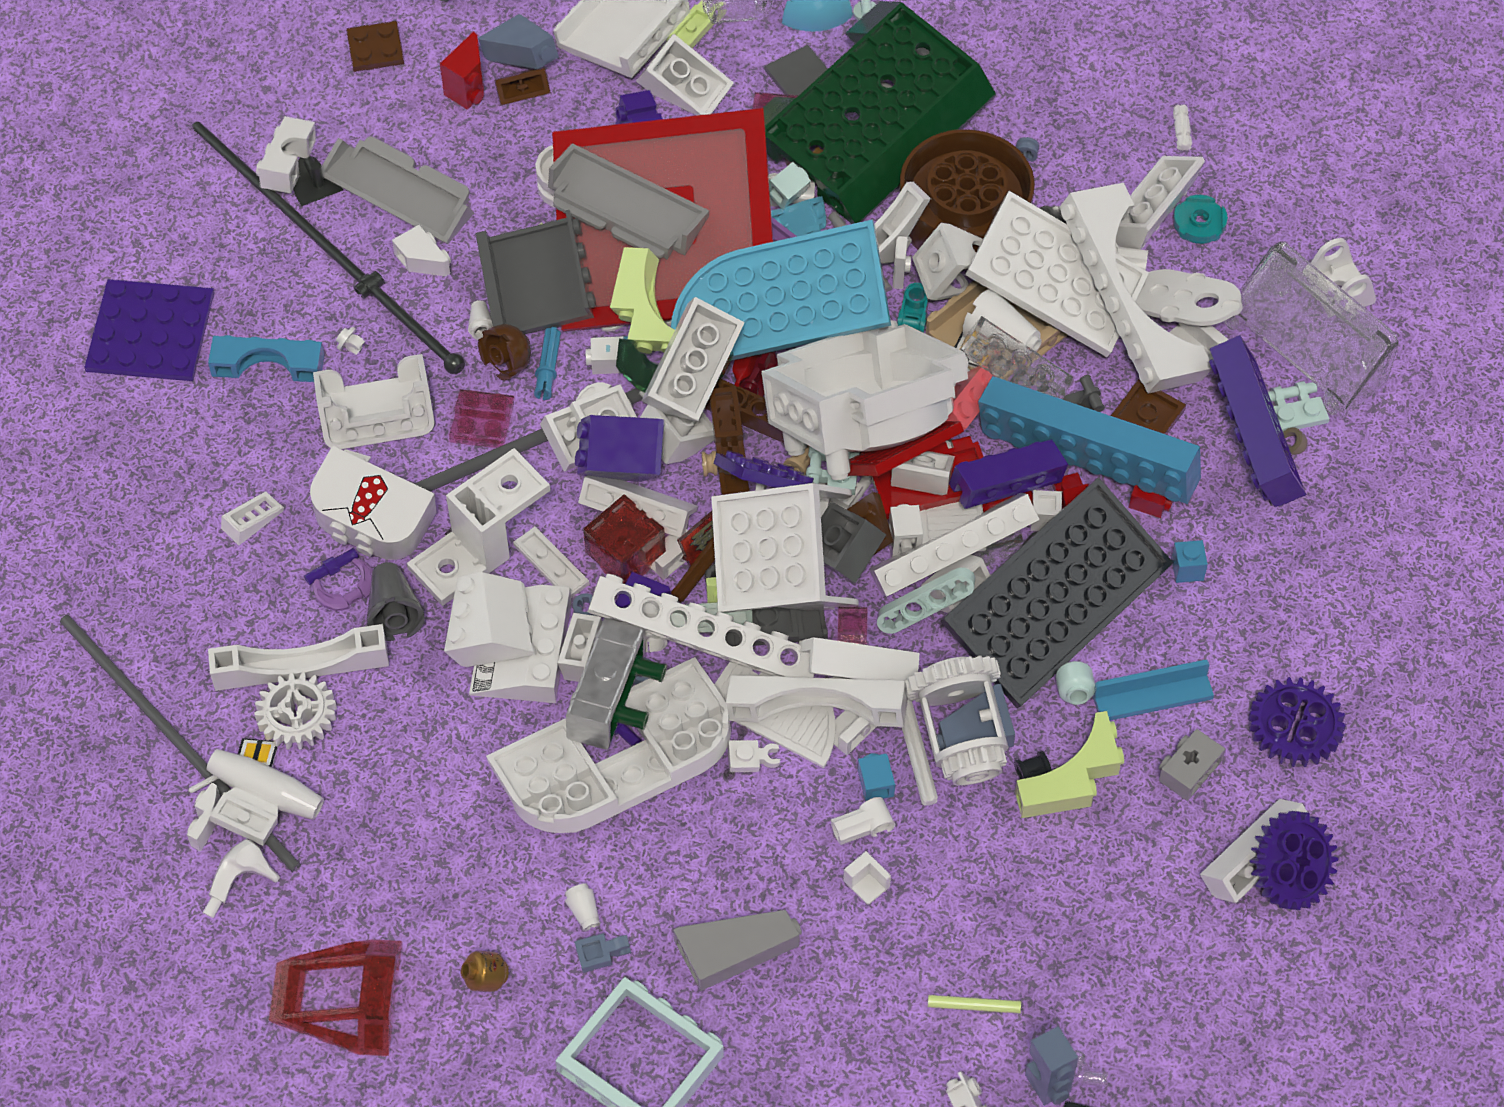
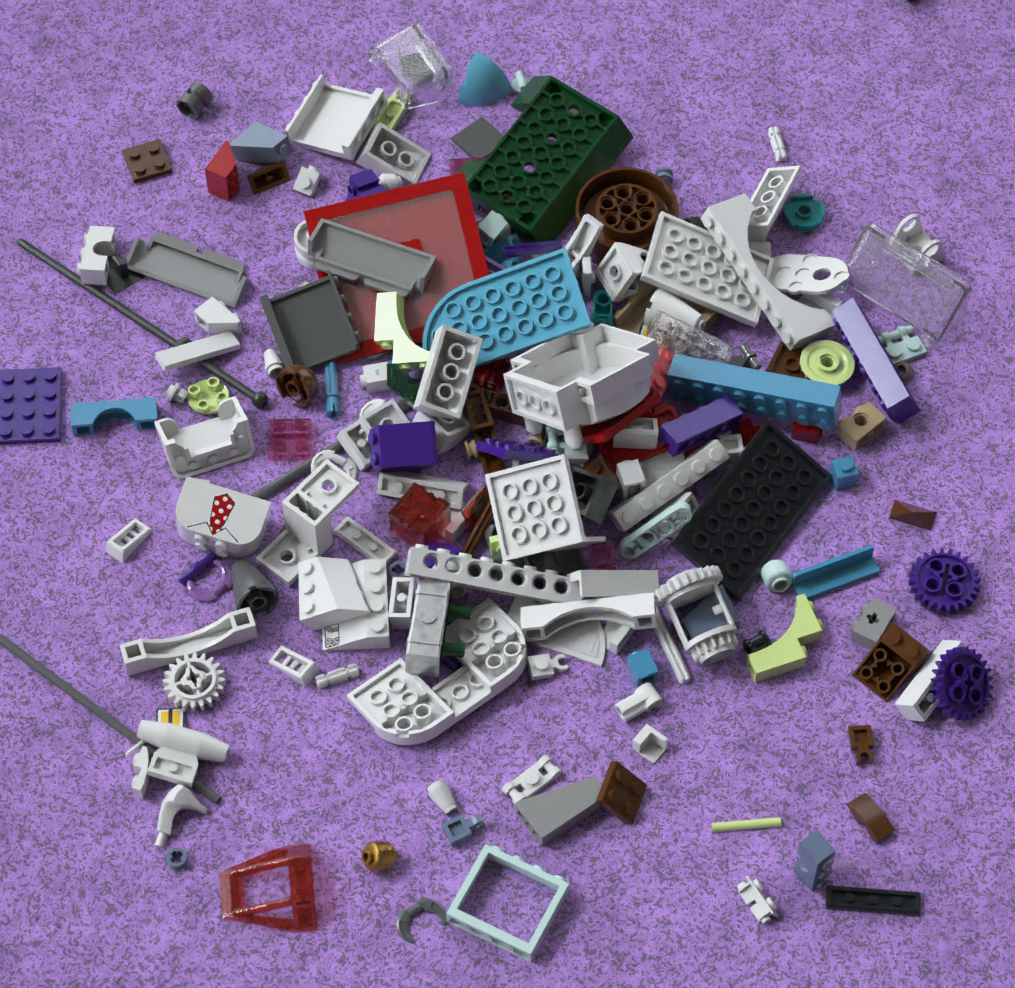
camera: 10 degrees left, 0 degrees up
(236, 935) = (176, 851): none -> sand blue bush
(386, 290) = (197, 350): none -> white tile
(388, 347) = (207, 395): none -> yellowish green dish
(440, 720) = (305, 672): none -> white slope
(480, 729) = (337, 676): none -> white axle
(503, 1056) = (427, 905): none -> dark grey piece
(550, 461) = (349, 465): none -> white piece
(571, 96) = (308, 180): none -> white bracket
(673, 109) = (390, 181): none -> white cone
(704, 902) = (532, 780): none -> white plate
(816, 937) = (621, 793): none -> reddish brown plate
(833, 218) = (531, 249): none -> dark purple axle
(1141, 1017) = (872, 817): none -> reddish brown slope
(1147, 916) = (861, 740): none -> reddish brown plate
(1195, 404) = (827, 353): none -> yellowish green gear
(1207, 818) = (891, 662): none -> reddish brown slope
(1214, 515) = (871, 421): none -> tan brick
(1271, 629) = (912, 515): none -> reddish brown slope

